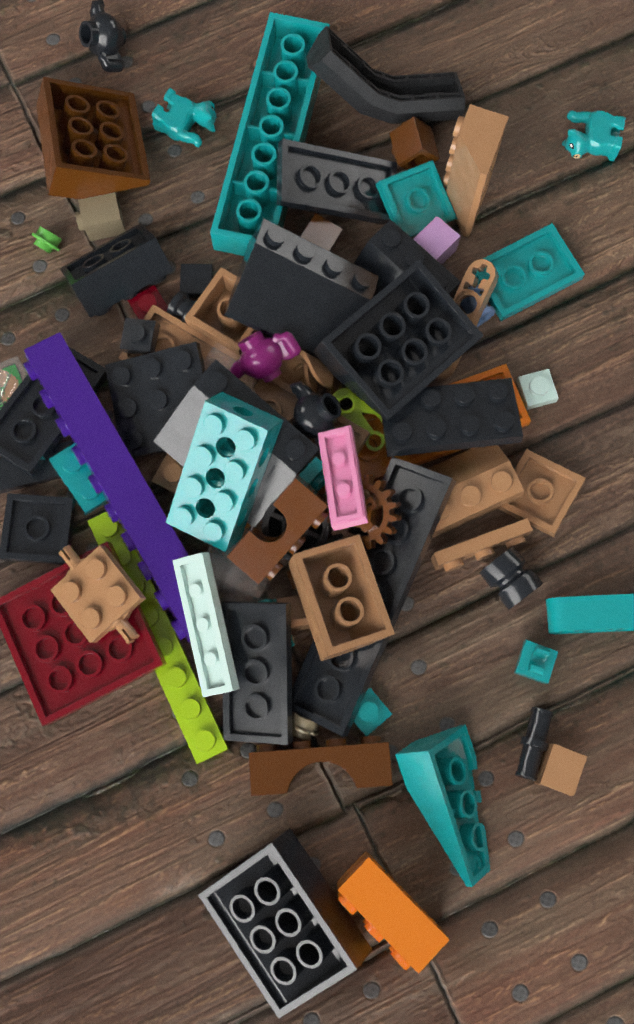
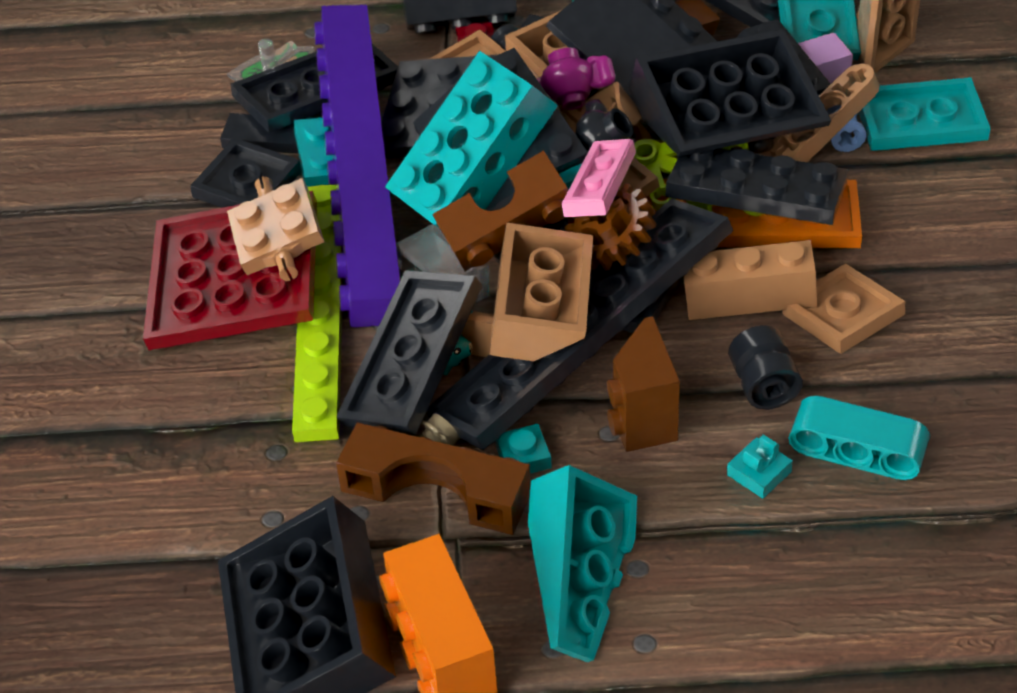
camera: 25 degrees right, 30 degrees down
(139, 336) = (450, 45): black plate -> none
(206, 624) = (375, 281): light aqua plate -> none
(440, 640) = (644, 391): none -> reddish brown slope
(481, 546) = (716, 328): medium nougat plate -> none
(534, 744) = (715, 542): black pin -> none
(537, 389) = (886, 219): light aqua plate -> none
(561, 769) = (735, 567): medium nougat panel -> none

